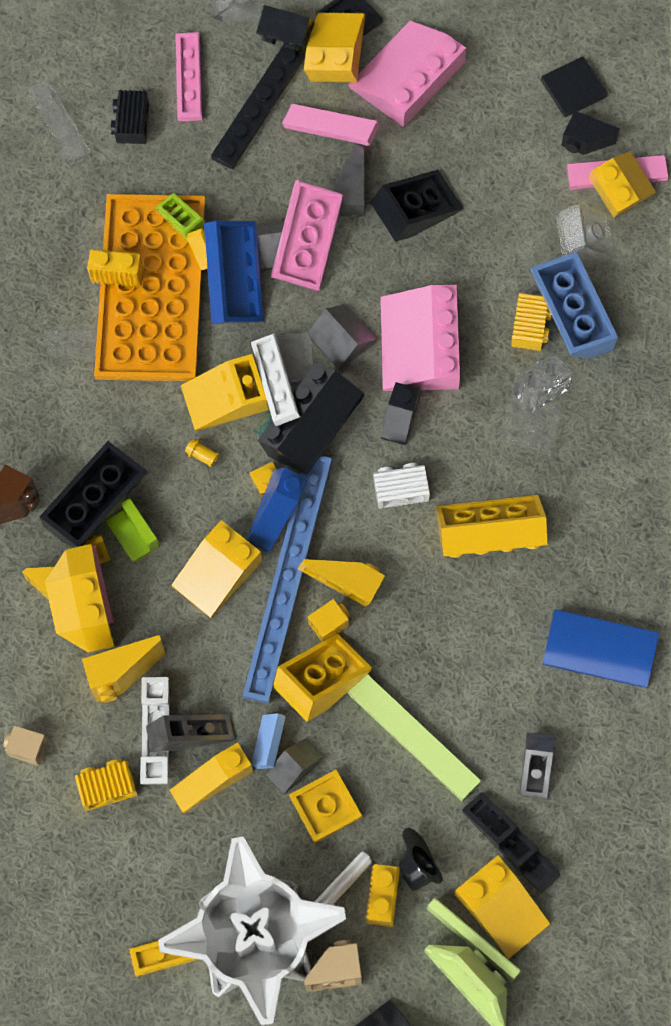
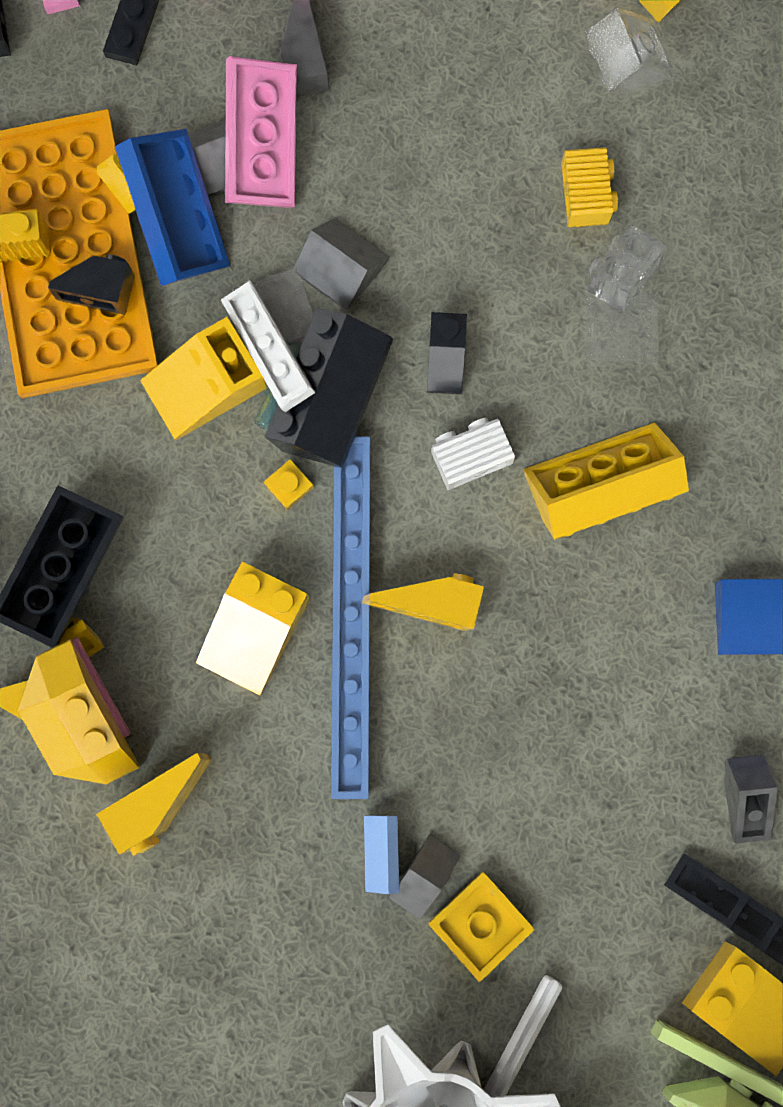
camera: 15 degrees left, 10 degrees up
(25, 745) = (50, 941): tan brick -> none
(105, 784) = (174, 971): yellow brick -> none
(132, 532) = (124, 601): lime panel -> none
(155, 703) = (225, 878): white slope -> none
(167, 312) = (96, 284): none -> black slope
(188, 731) = (271, 870): flat silver slope -> none
(193, 224) = (103, 149): lime slope -> none
(201, 452) = (191, 468): yellow pin -> none
(212, 777) = (317, 924): yellow slope -> none
(276, 507) = (311, 523): blue slope -> none
(320, 676) = (430, 746): yellow slope -> none
(329, 620) = (422, 664): yellow brick -> none
(382, 895) = (591, 1036): yellow brick -> none
(414, 737) = (573, 797): yellowish green tile -> none
(415, 204) = (393, 59): black slope -> none
(417, 862) = (626, 977): black piece -> none
(421, 338) = (448, 243): bright pink slope -> none
(575, 306) = (646, 151): medium blue slope -> none

